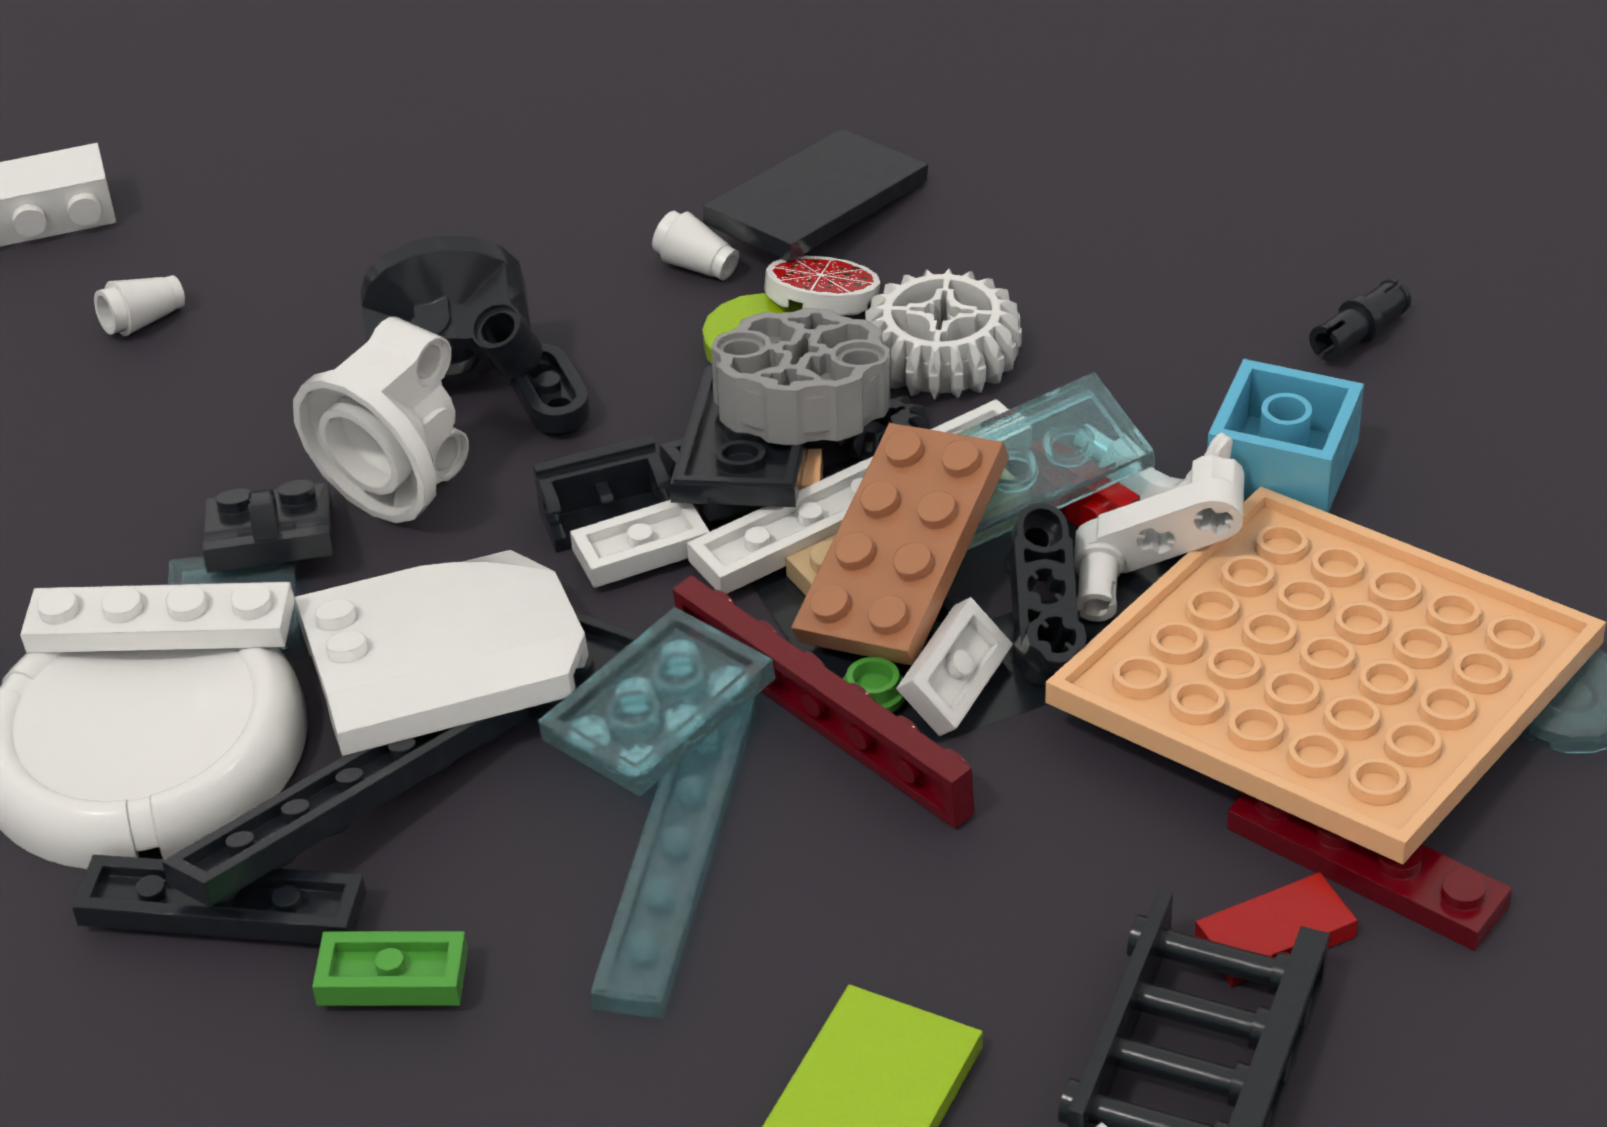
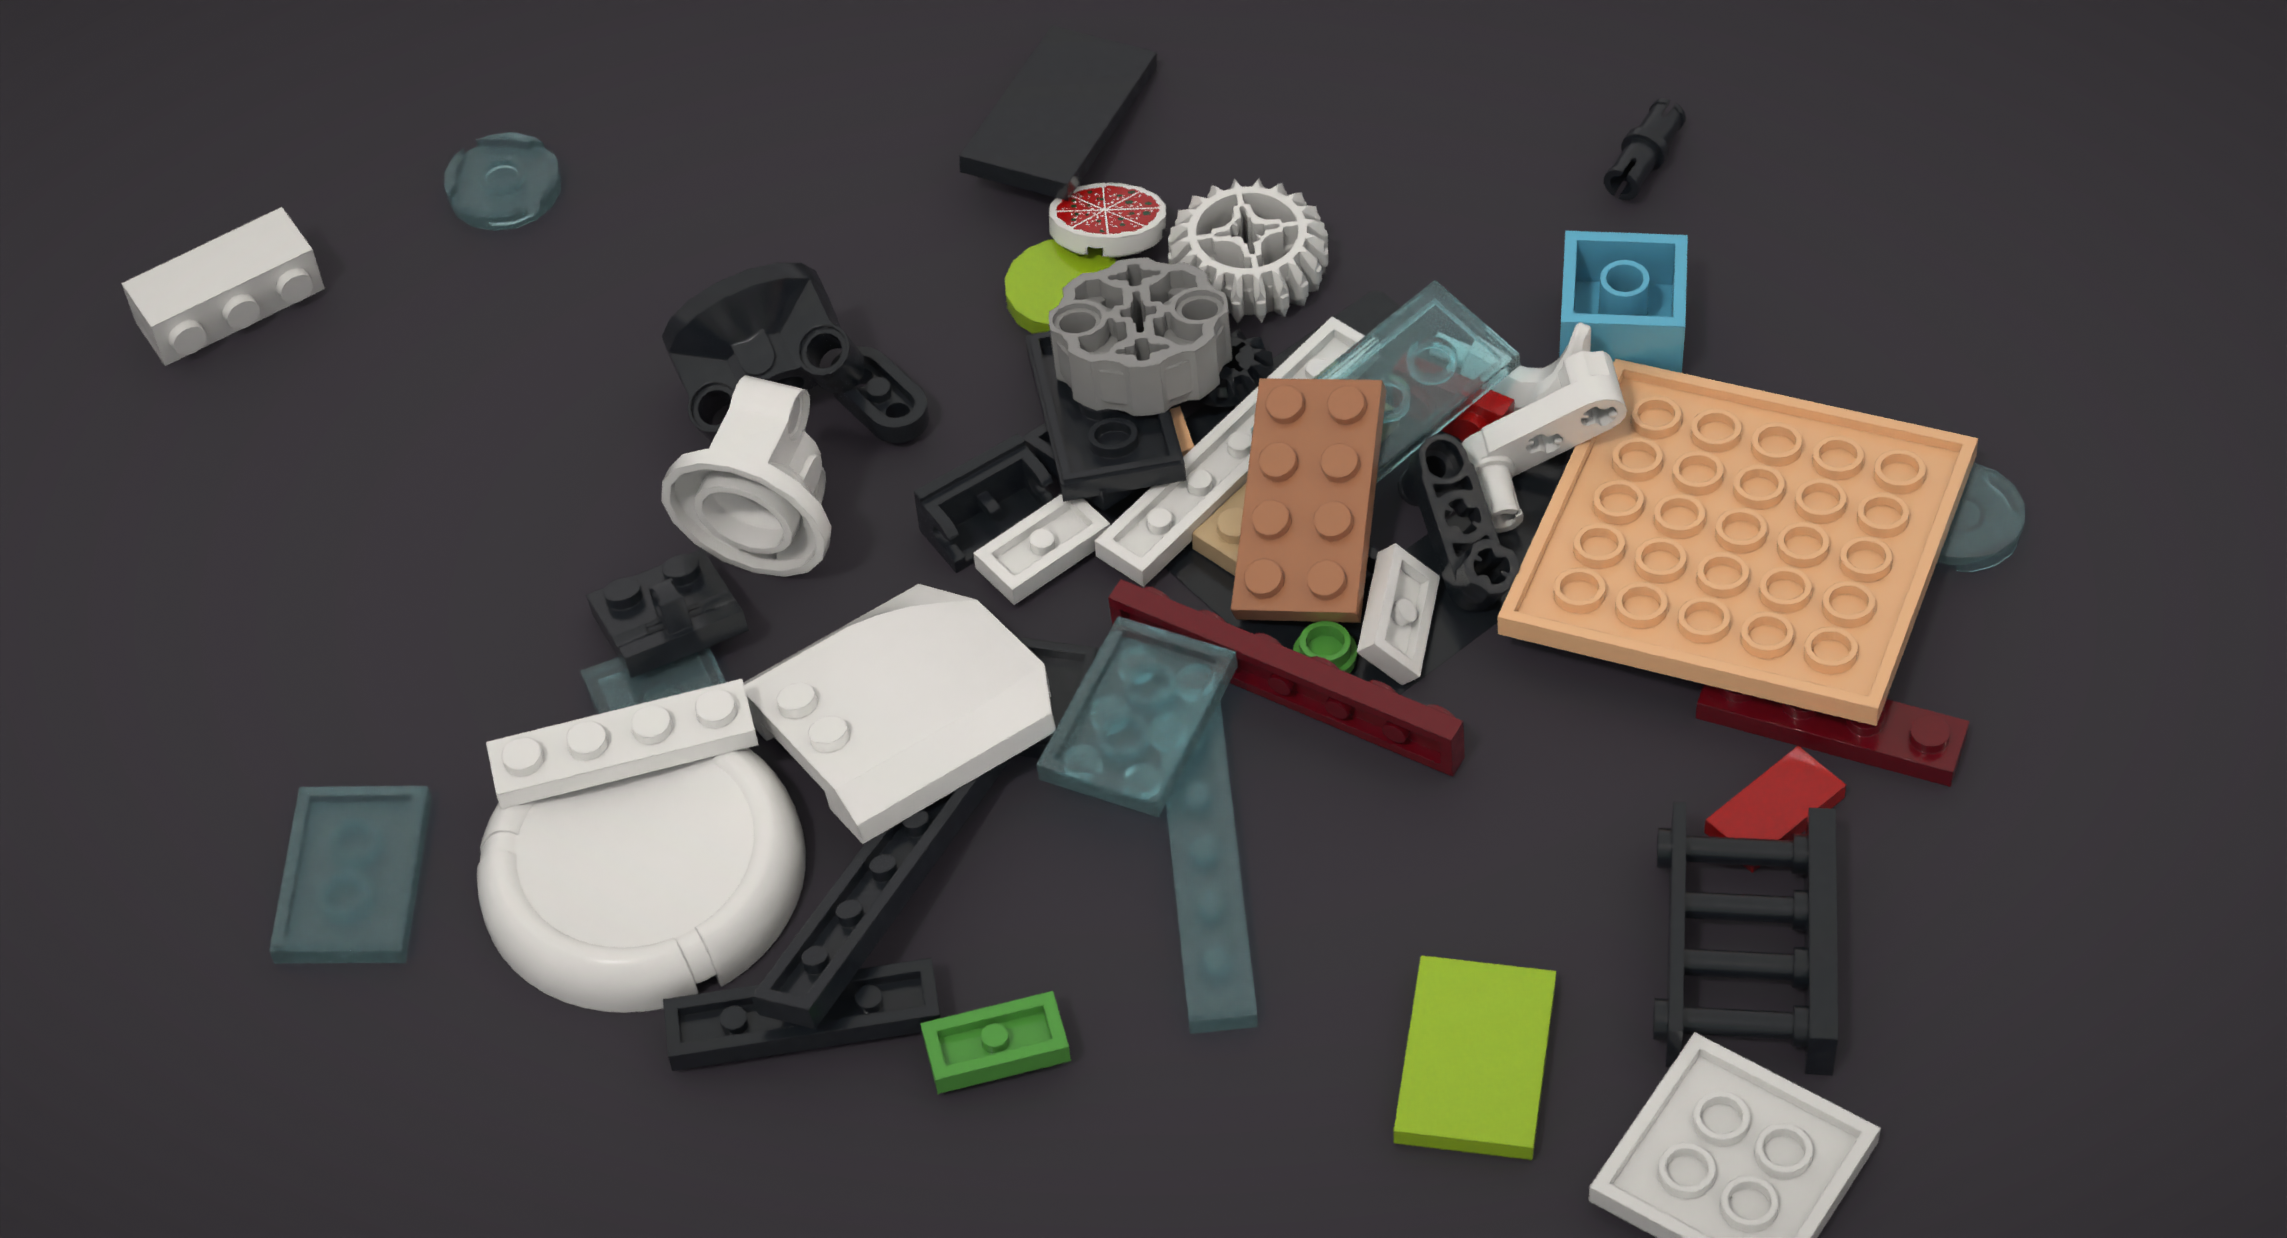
camera: 15 degrees left, 10 degrees up
(136, 303) = (404, 386): white cone -> none
(306, 168) = (503, 181): none -> clear light blue tile
(693, 246) = (958, 199): white cone -> none

